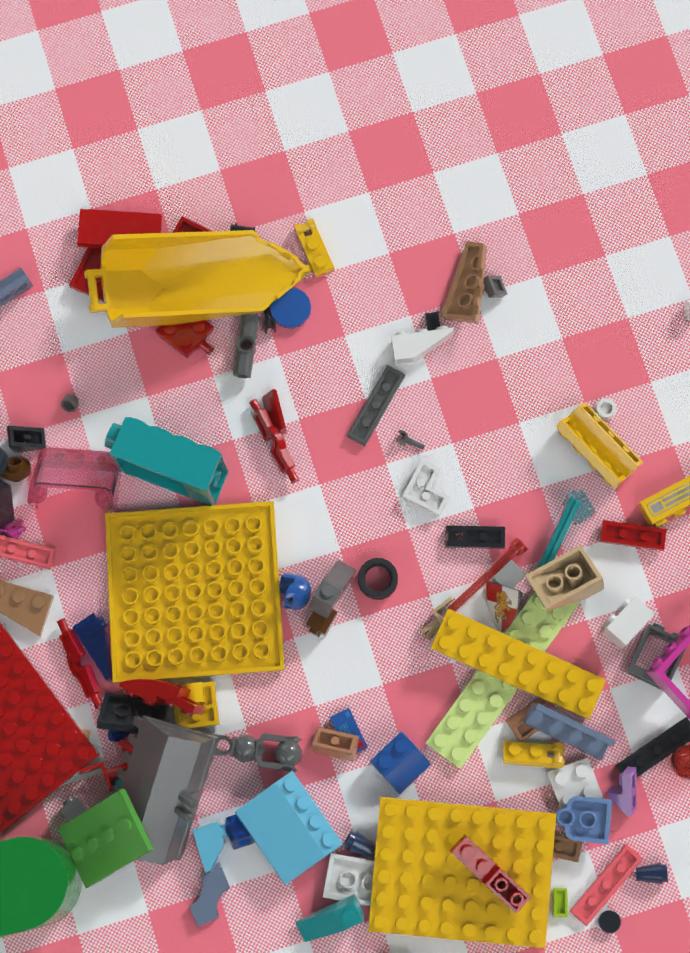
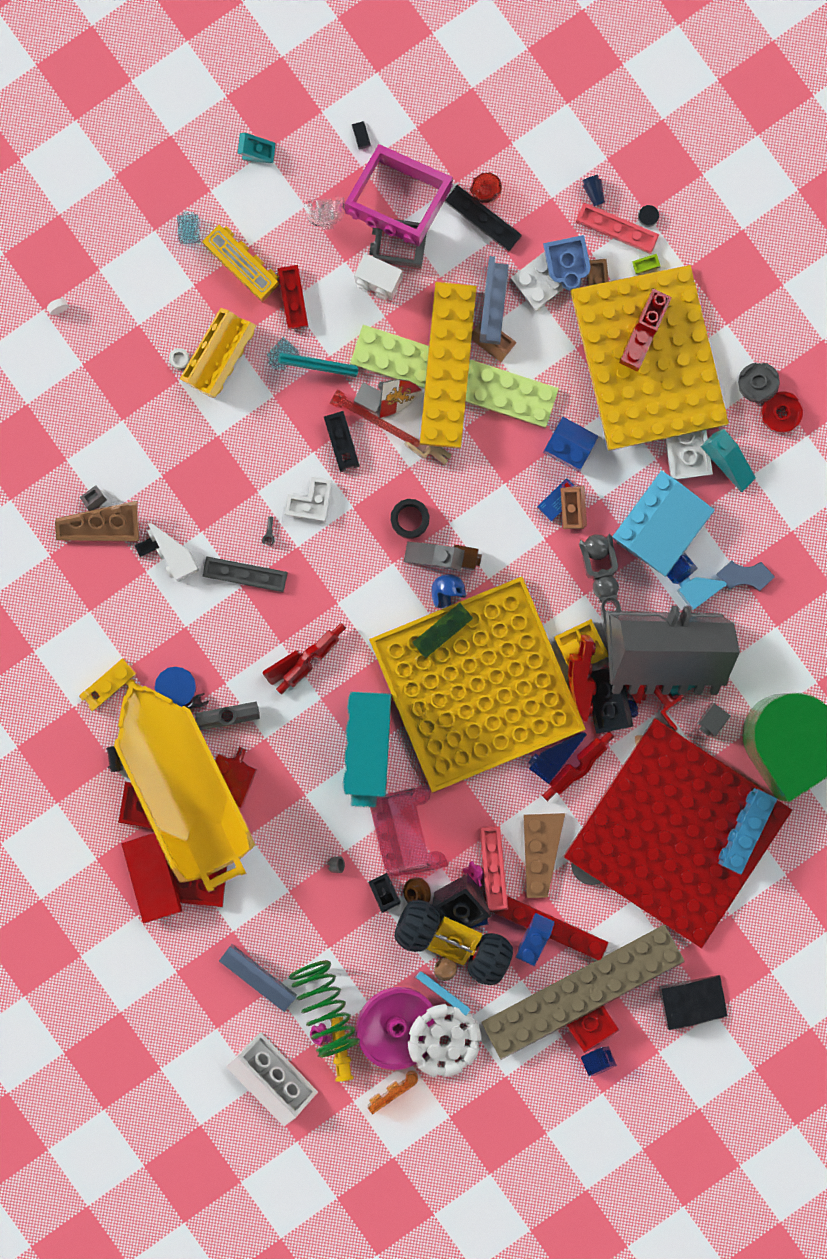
camera: 110 degrees left, 10 degrees up
(105, 838) = (729, 681): bright green plate -> none
(257, 573) = (442, 630): none -> clear green plate
(359, 844) = (655, 456): dark blue cone -> none
(533, 754) = (524, 327): yellow plate -> none
(566, 579) = (357, 344): tan slope -> none
(626, 793) = (533, 234): medium lavender slope -> none

